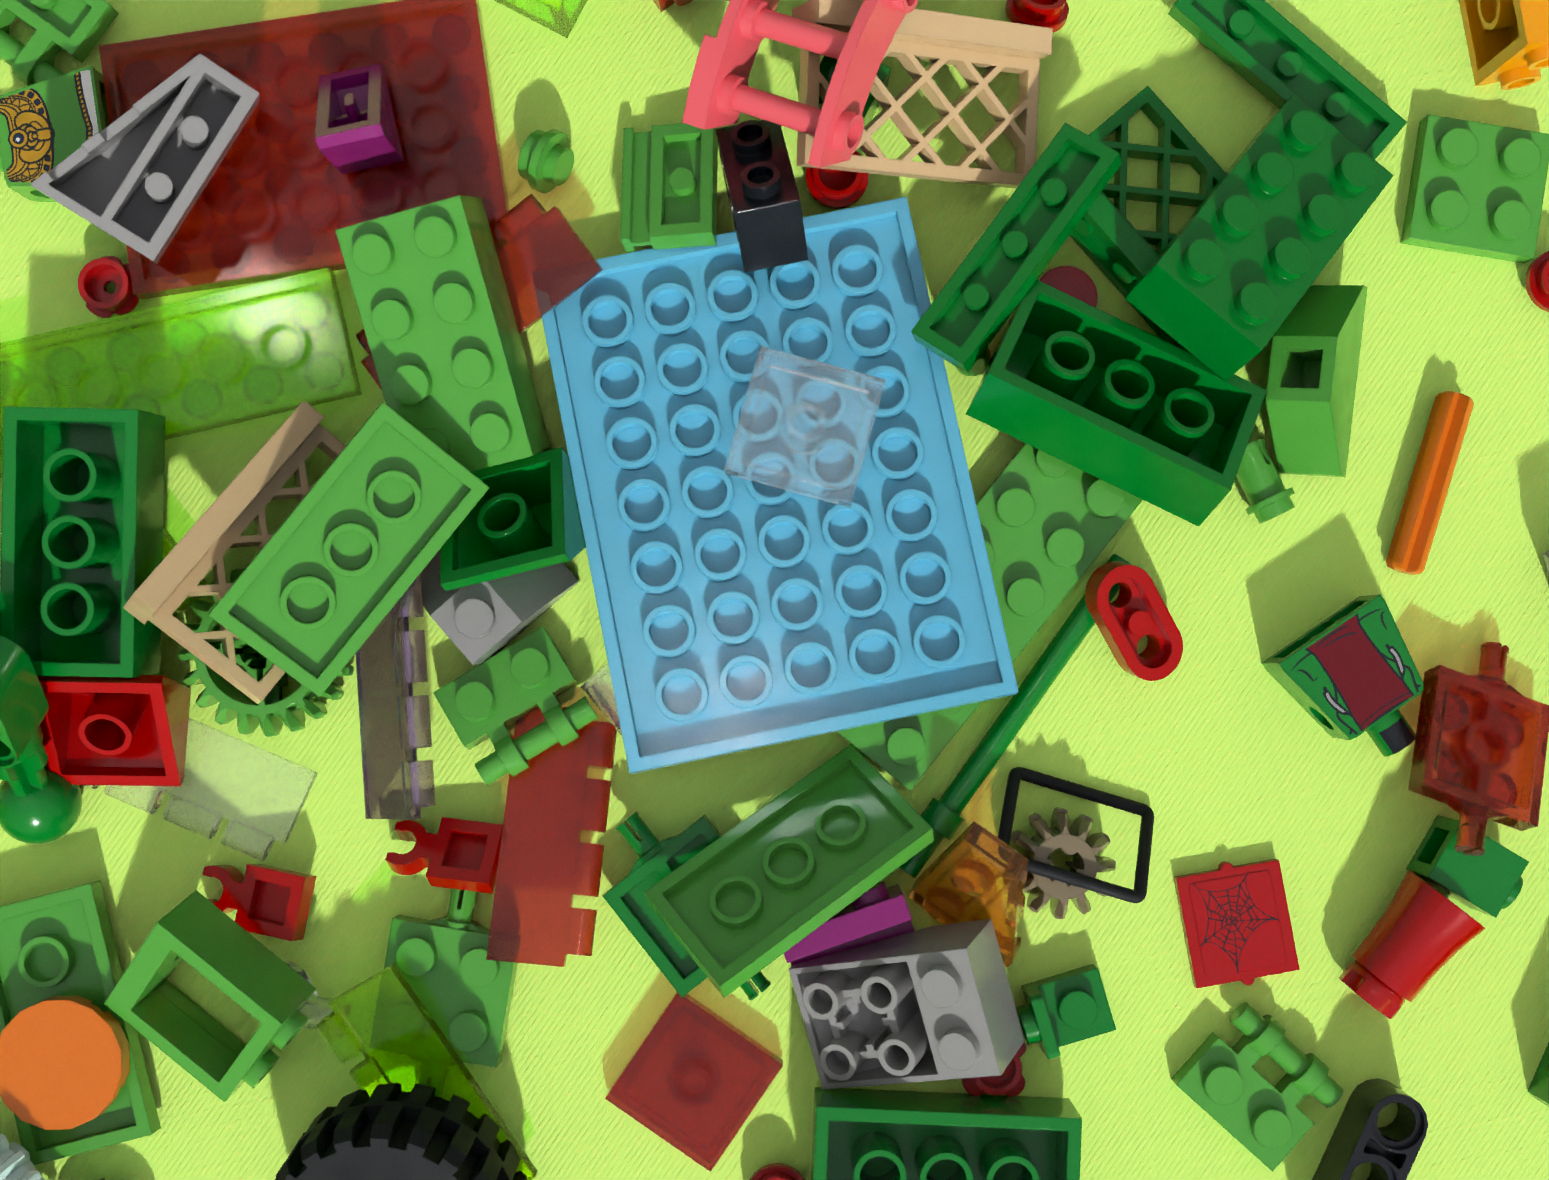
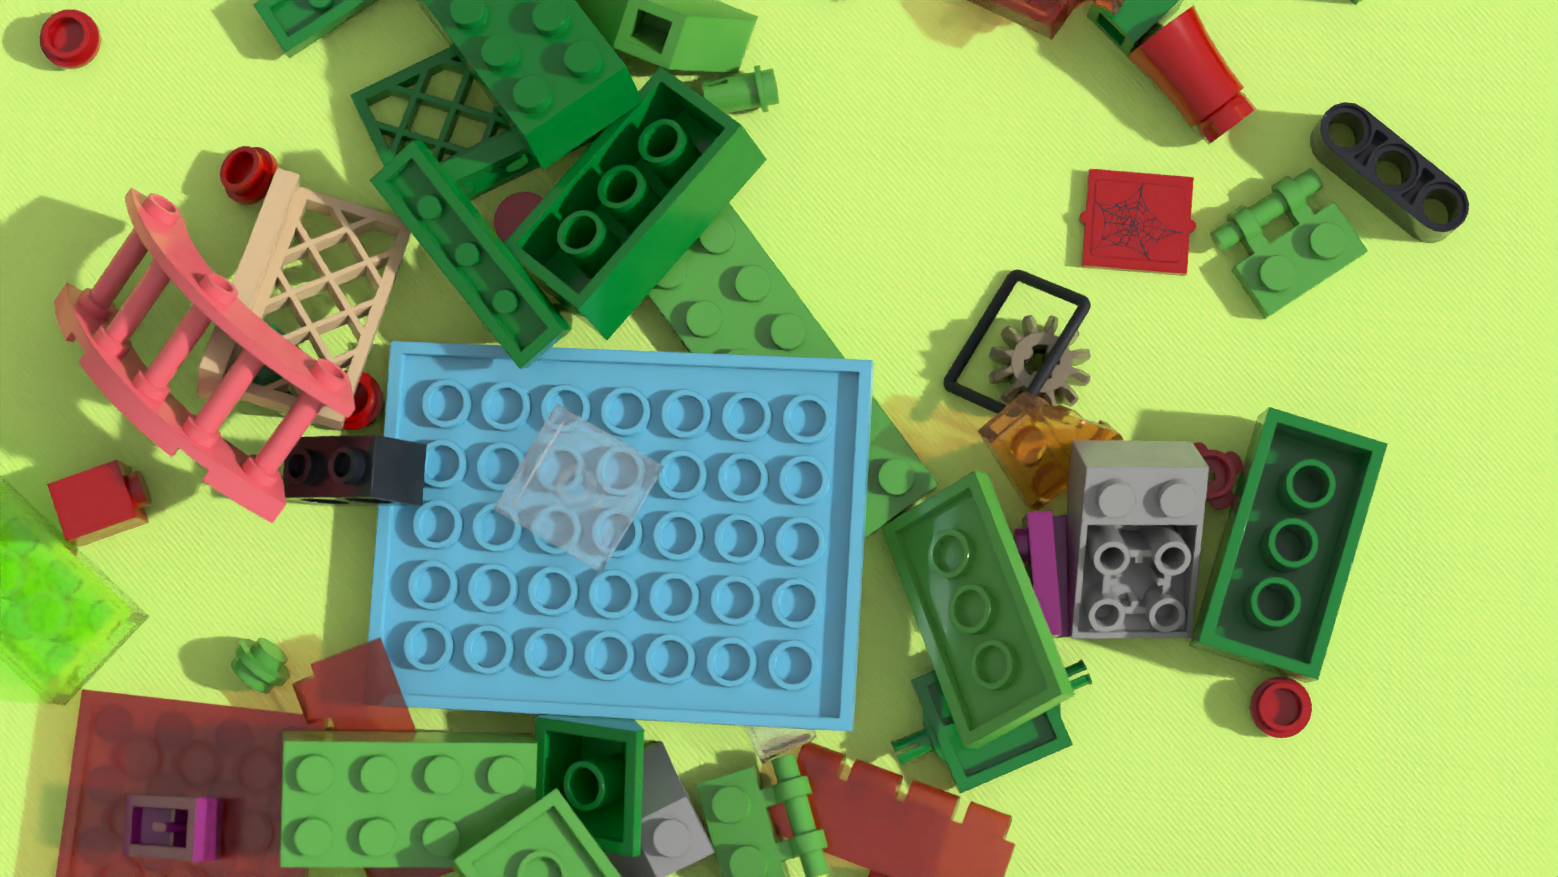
camera: 75 degrees left, 5 degrees down
(669, 187) = (320, 557): bright green plate -> none
(694, 1080) = (1153, 755): clear red plate -> none
(945, 813) = (965, 455): green bar -> none
(1065, 1009) = (1175, 397): green bracket -> none
(1130, 617) = (832, 239): red plate -> none
(1353, 674) = (938, 58): torso -> none

